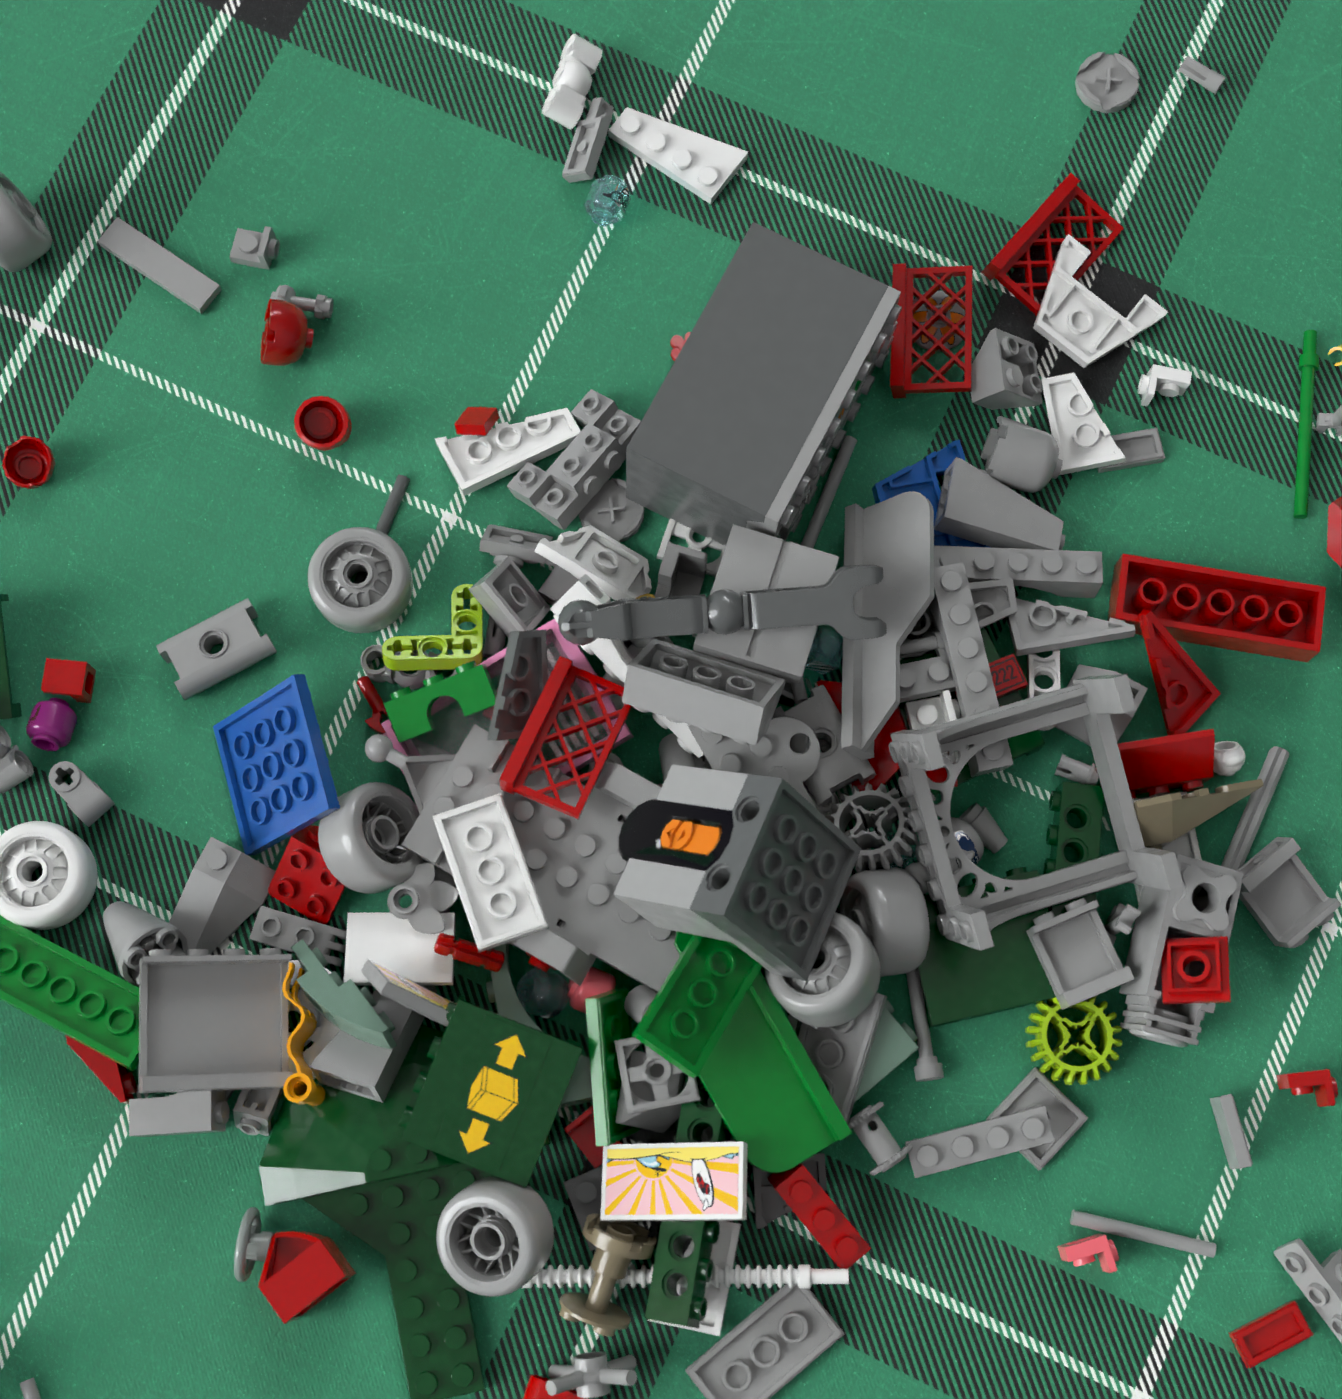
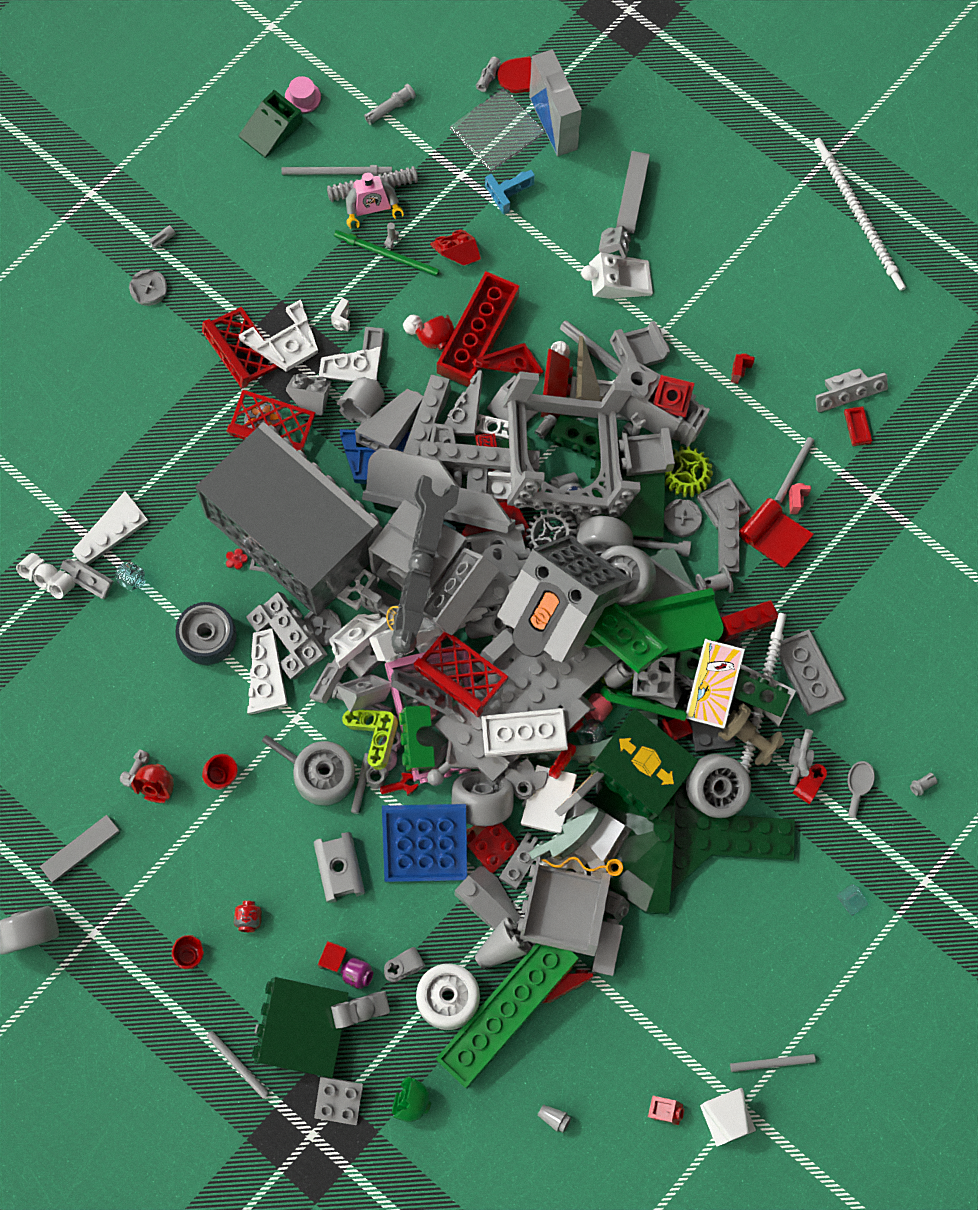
camera: 75 degrees left, 5 degrees down
(106, 535) = (247, 916): none -> red head
(255, 248) = (88, 788): light grey bracket -> none
(297, 1266) = (708, 898): red piece -> none
(345, 647) = (360, 786): none -> light grey bar
(476, 421) = (245, 685): red tile -> none
(539, 313) = (201, 619): none -> light grey wheel
(986, 1052) = (682, 518): none -> light grey tile
(1007, 1228) = (775, 533): none -> red door
(1183, 539) = (436, 332): none -> red cylinder
(1187, 501) = (412, 323): none -> white piece
(1231, 1132) = (754, 411): light grey tile -> none

